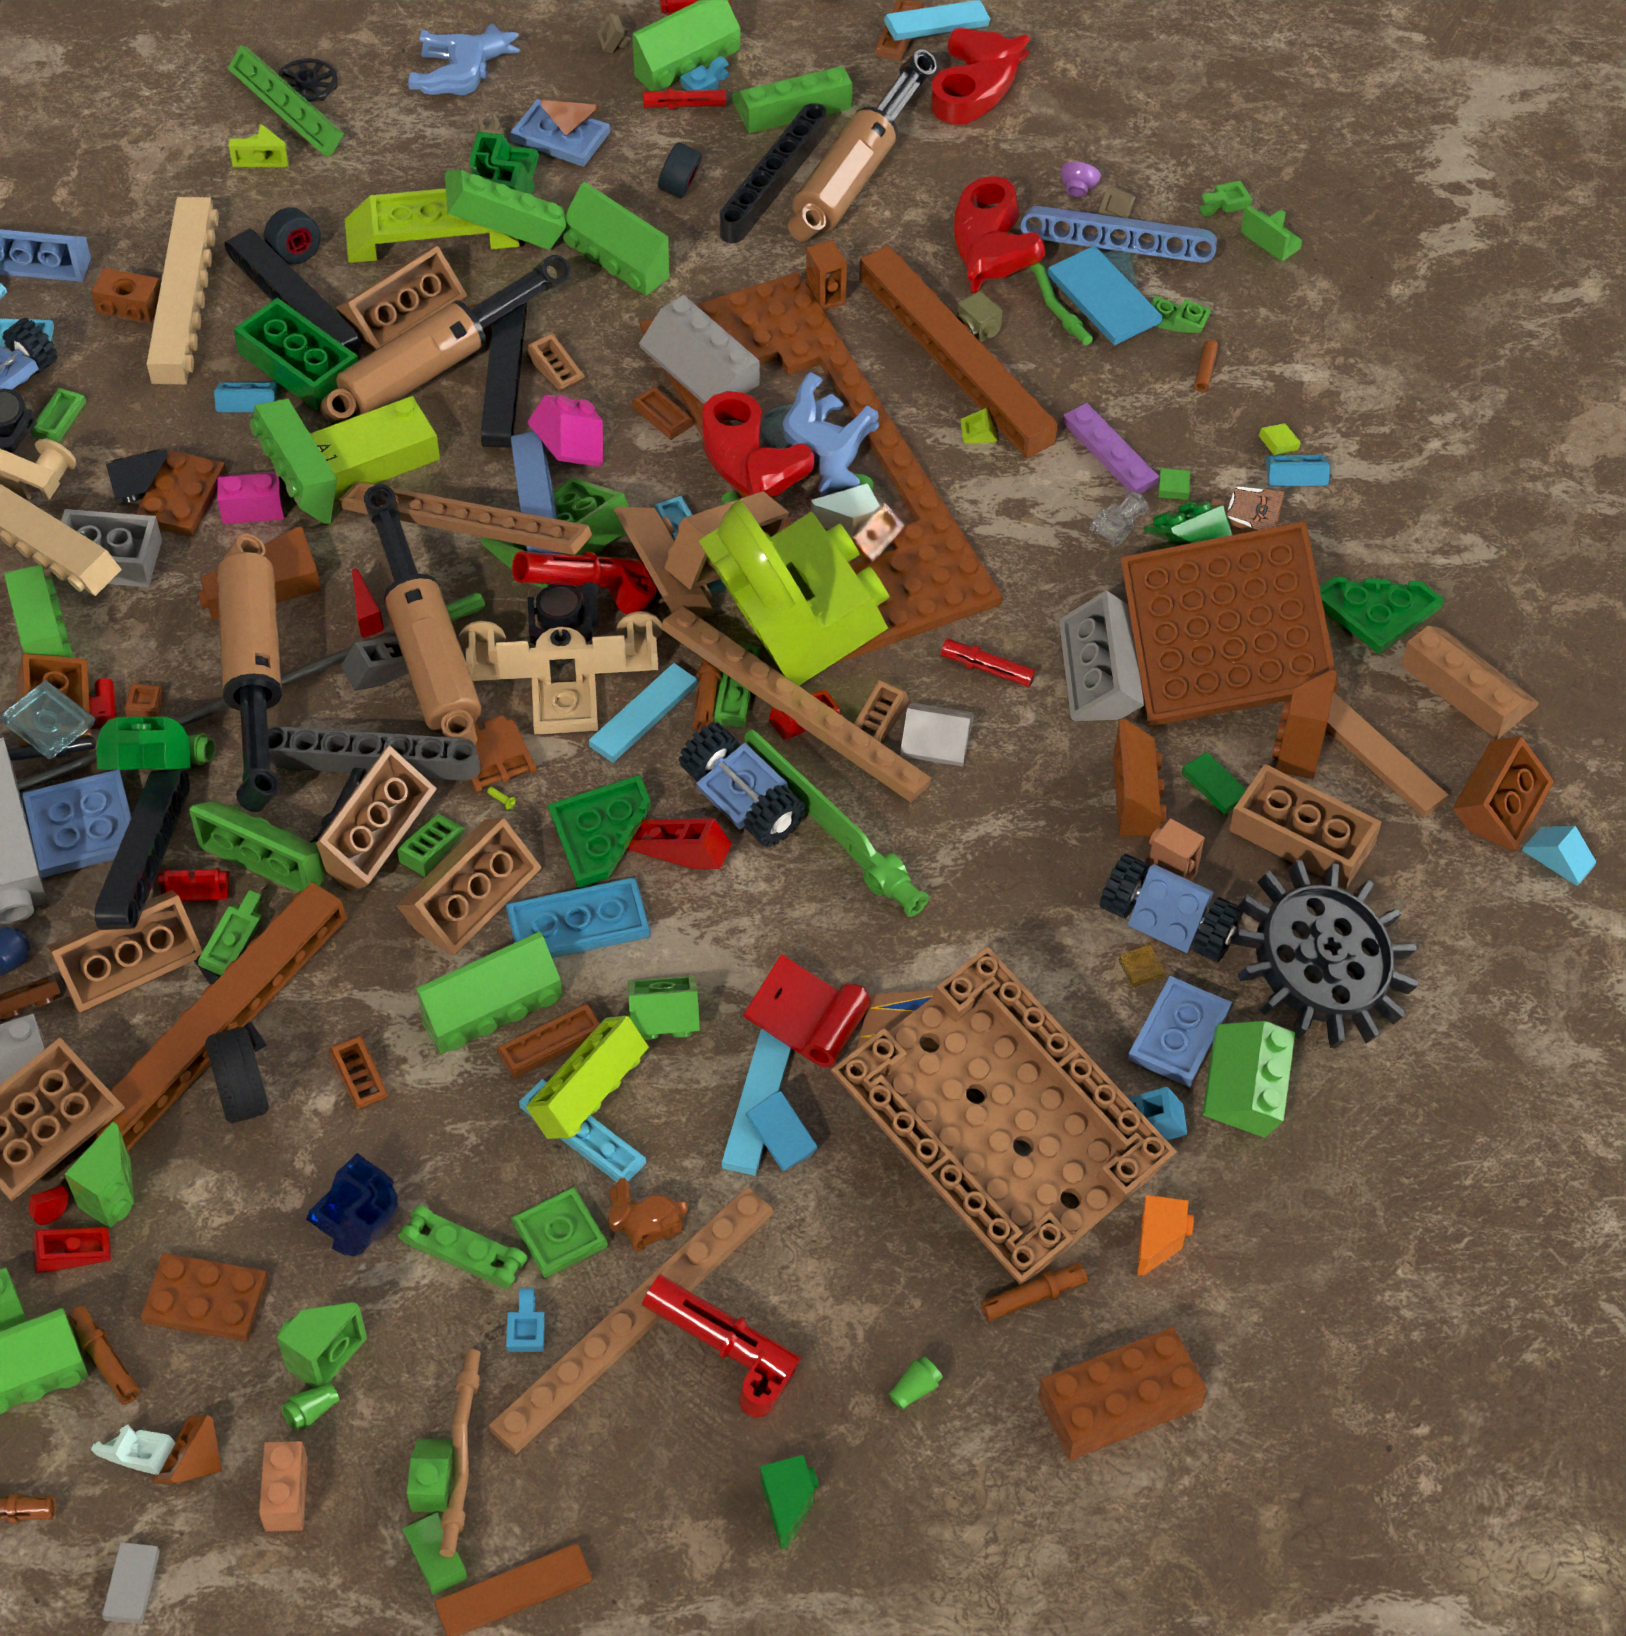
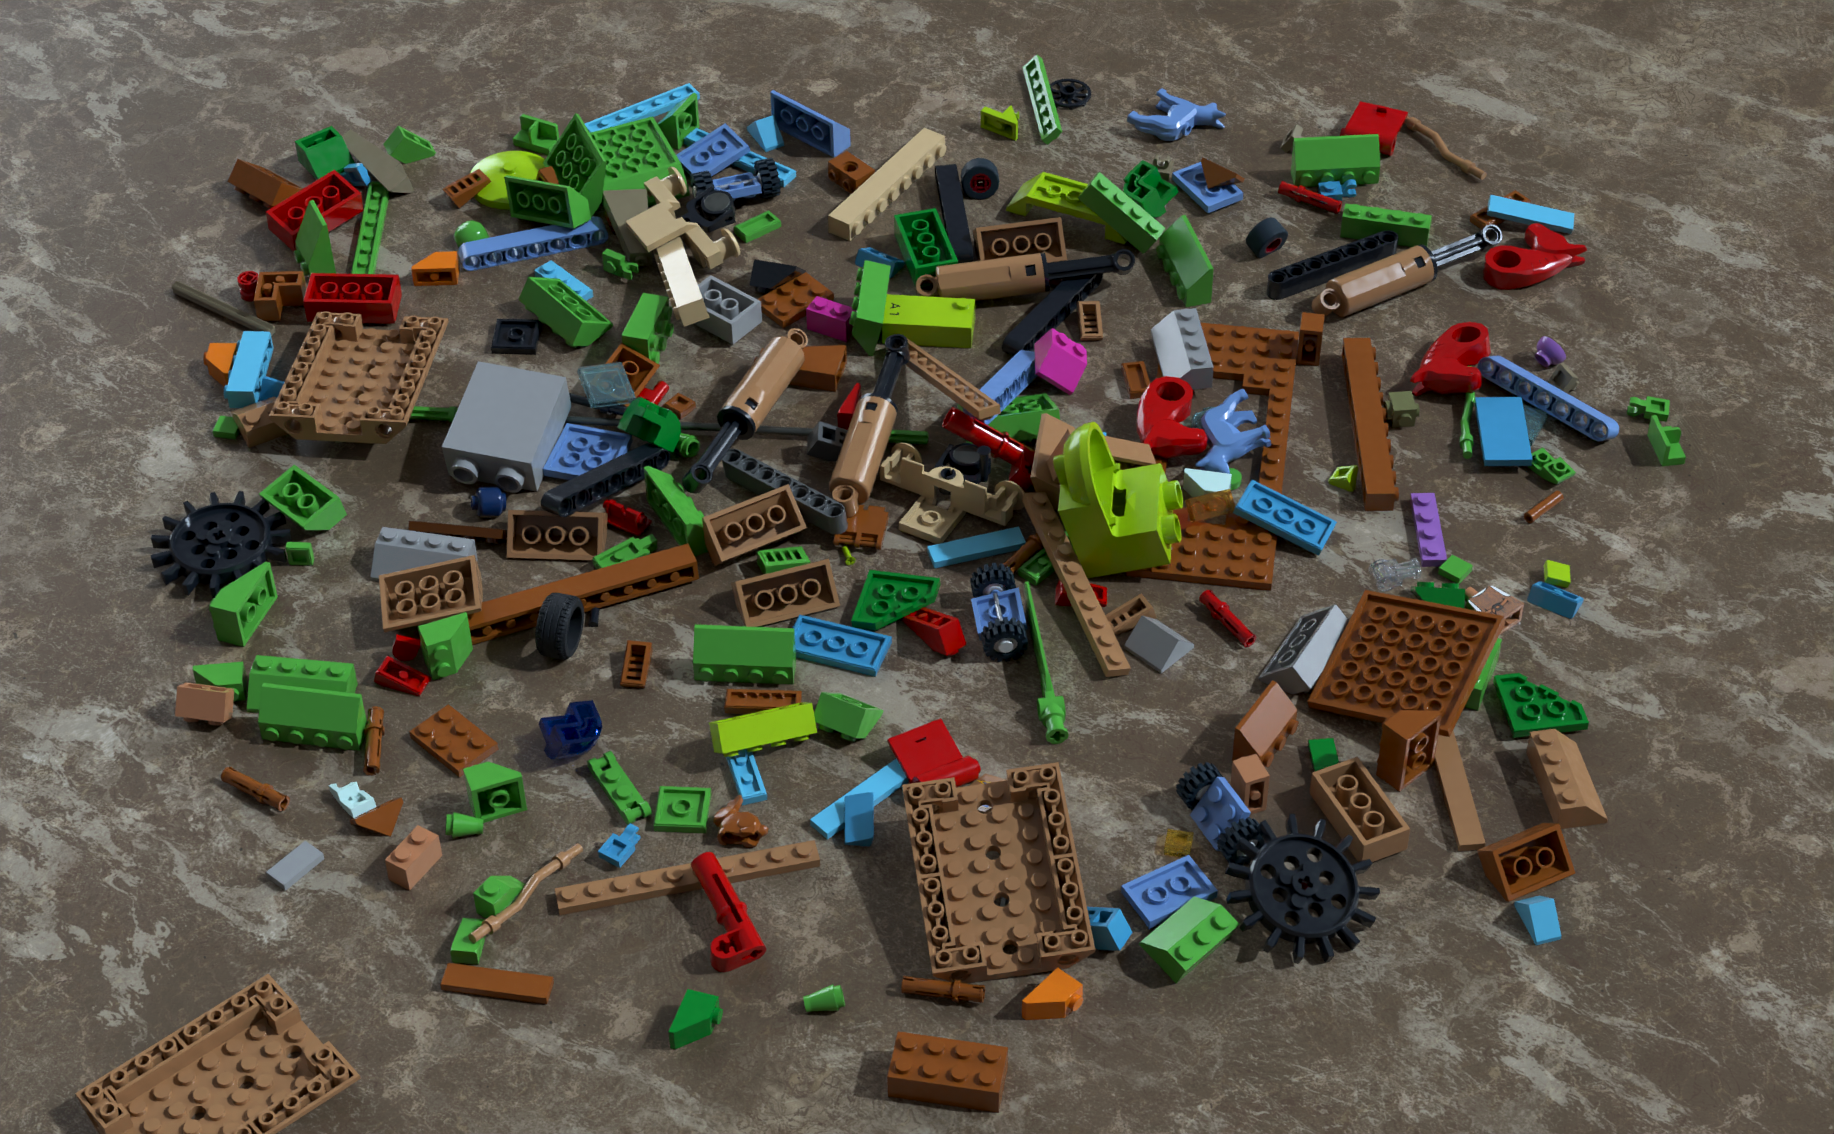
camera: 35 degrees right, 10 degrees down
(959, 508) = (1285, 517): none -> dark azure tile

